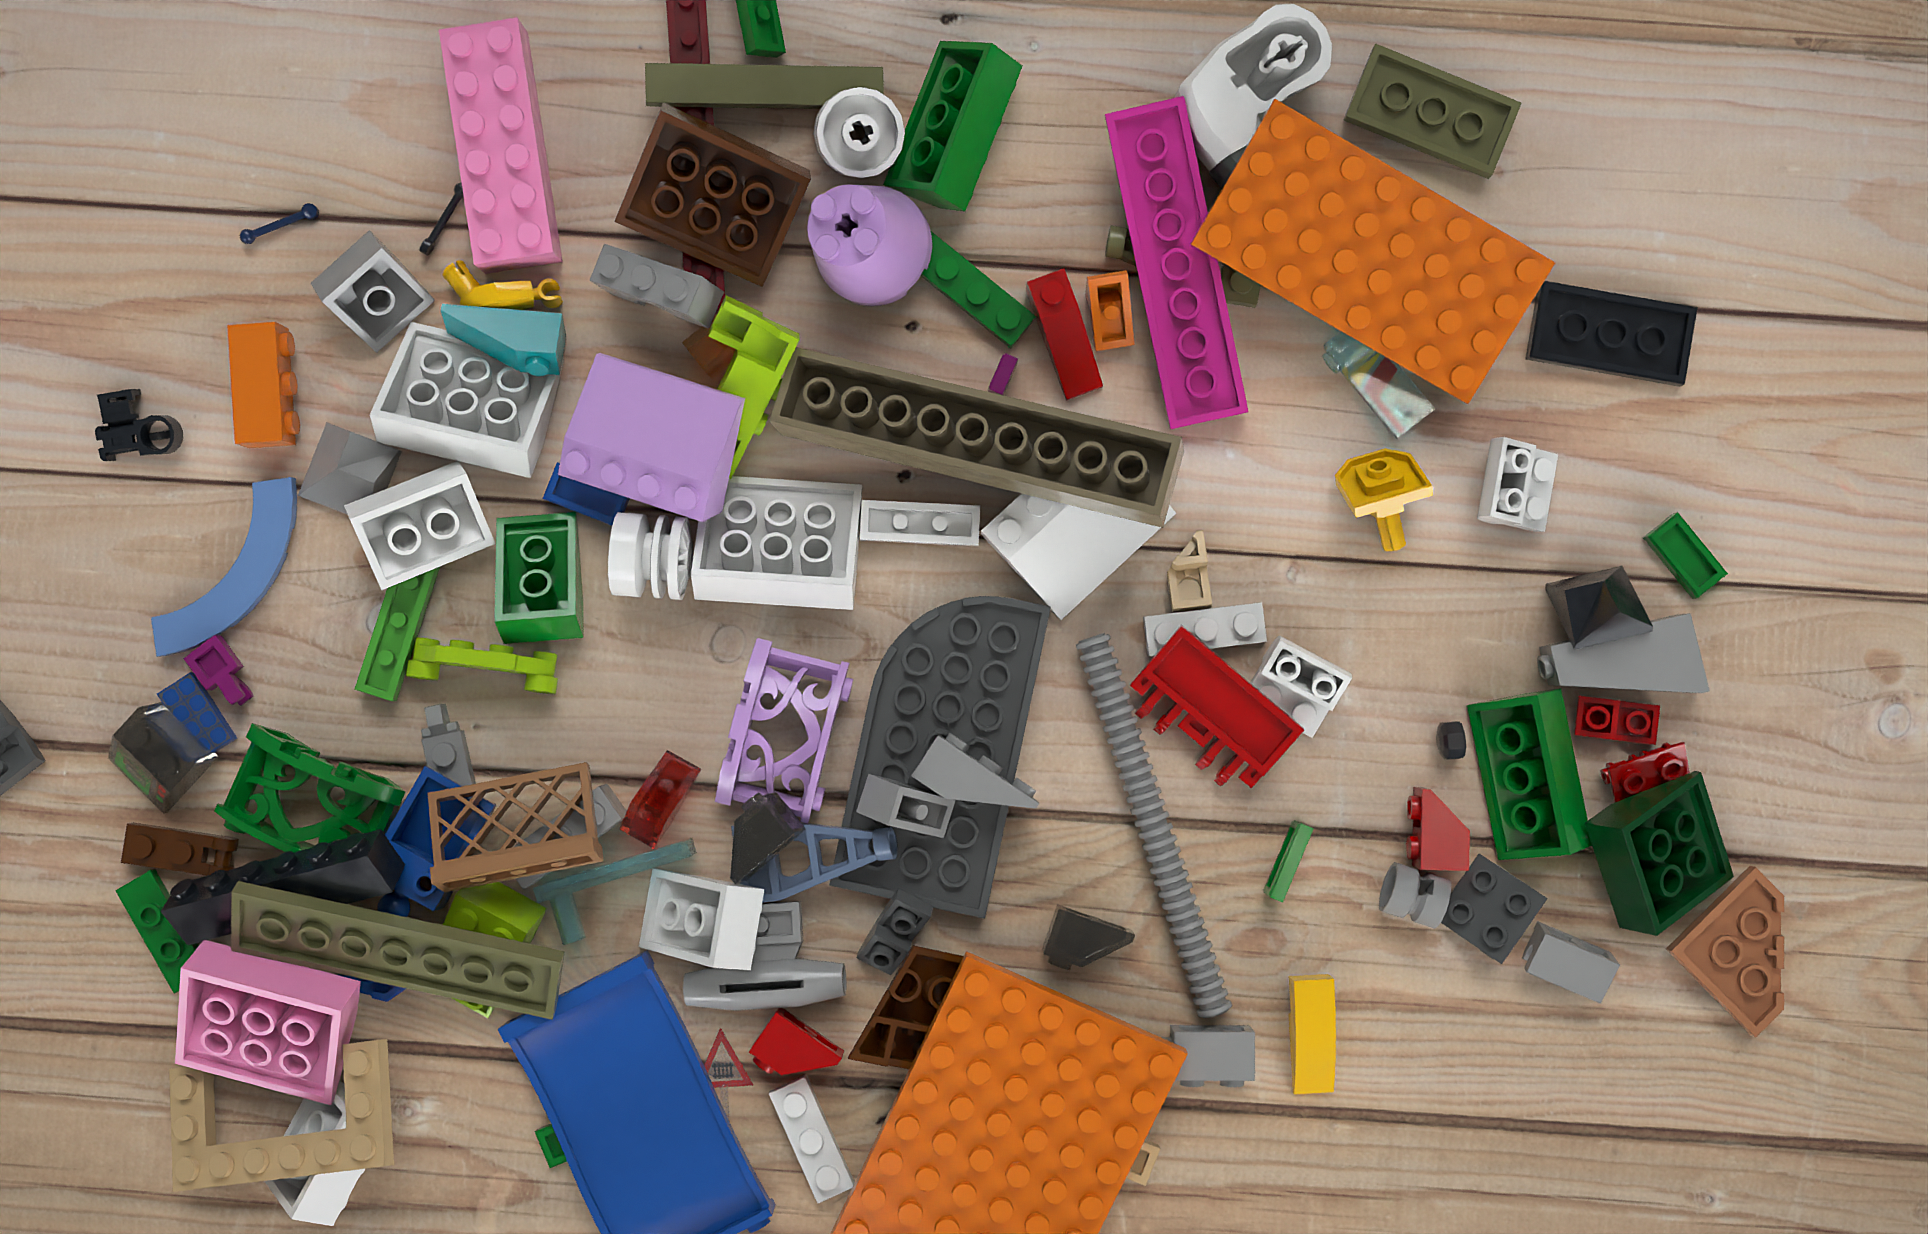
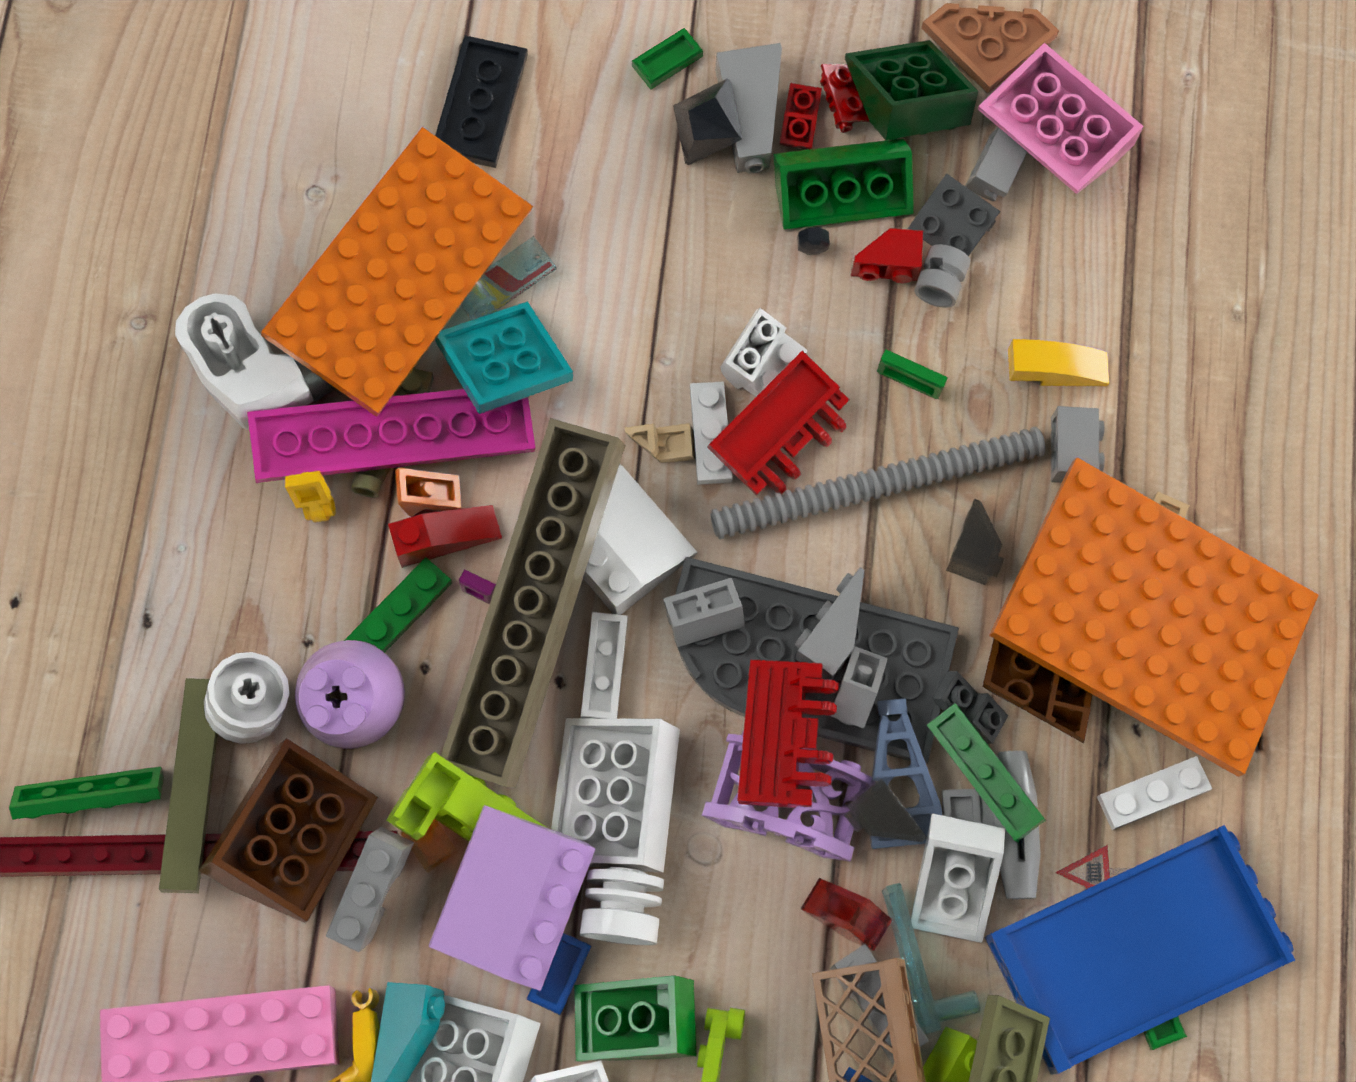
camera: 95 degrees left, 15 degrees down
(792, 1046) = (1073, 804): red slope -> none
(813, 949) = (986, 773): none -> green plate
(842, 716) = (779, 736): none -> red hinge
(954, 123) = (244, 615): green slope -> none
(981, 629) = (704, 612): none -> light grey hinge
(1096, 180) = (312, 494): none -> yellow plate
(1276, 384) = (503, 357): none -> teal plate
(1380, 486) = (597, 281): yellow piece -> none
(1432, 111) = (279, 224): olive plate -> none
(1517, 485) = (602, 177): white brick -> none
(1629, 1037) = (1062, 119): none -> bright pink slope

